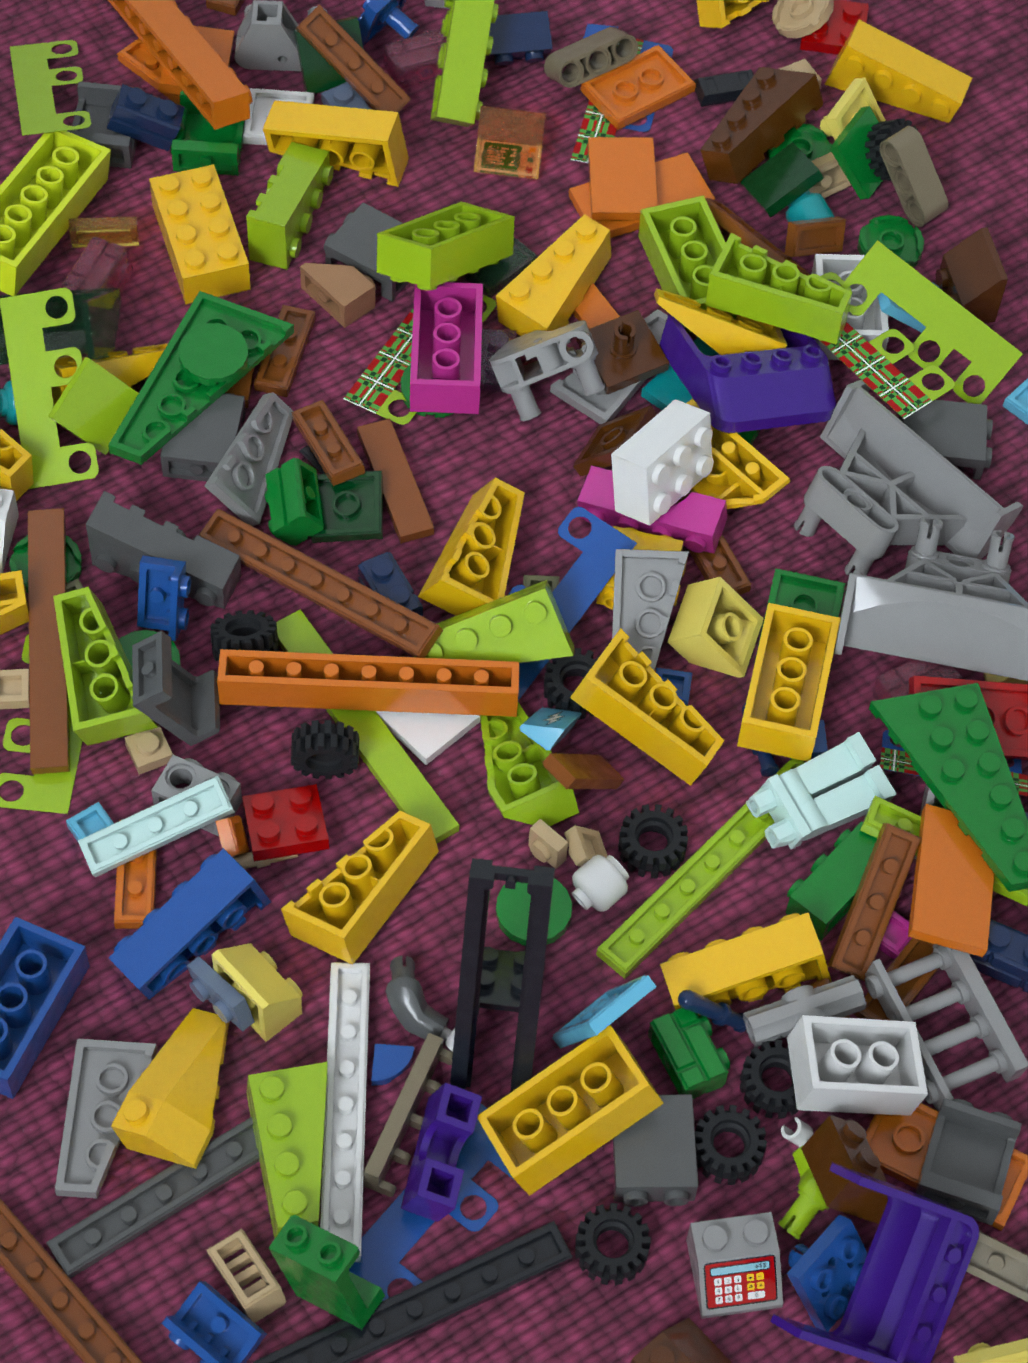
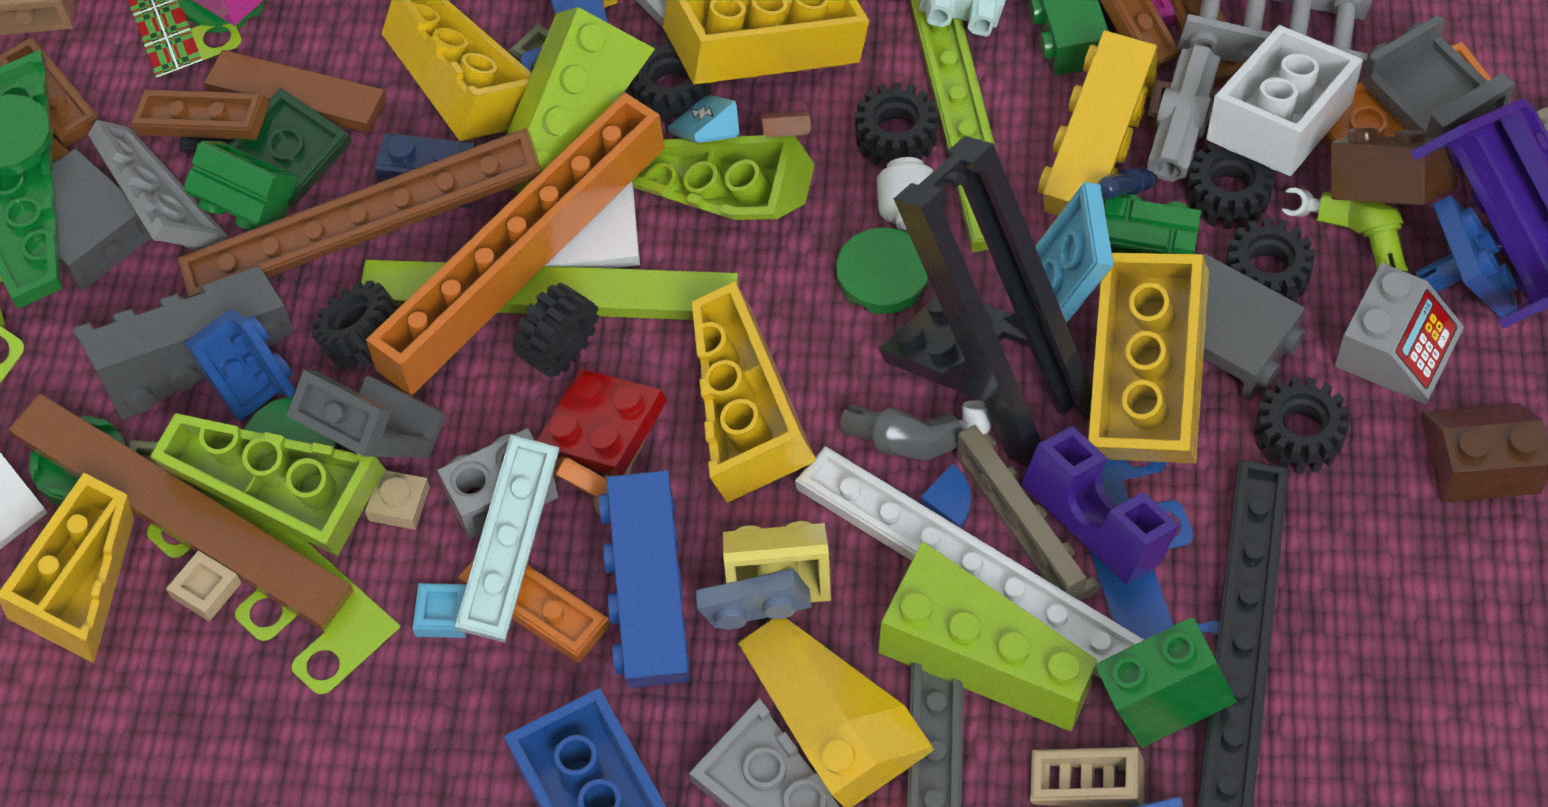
camera: 45 degrees left, 0 degrees up
(547, 844) = (826, 210): tan plate -> none
(584, 844) = (855, 183): tan plate -> none

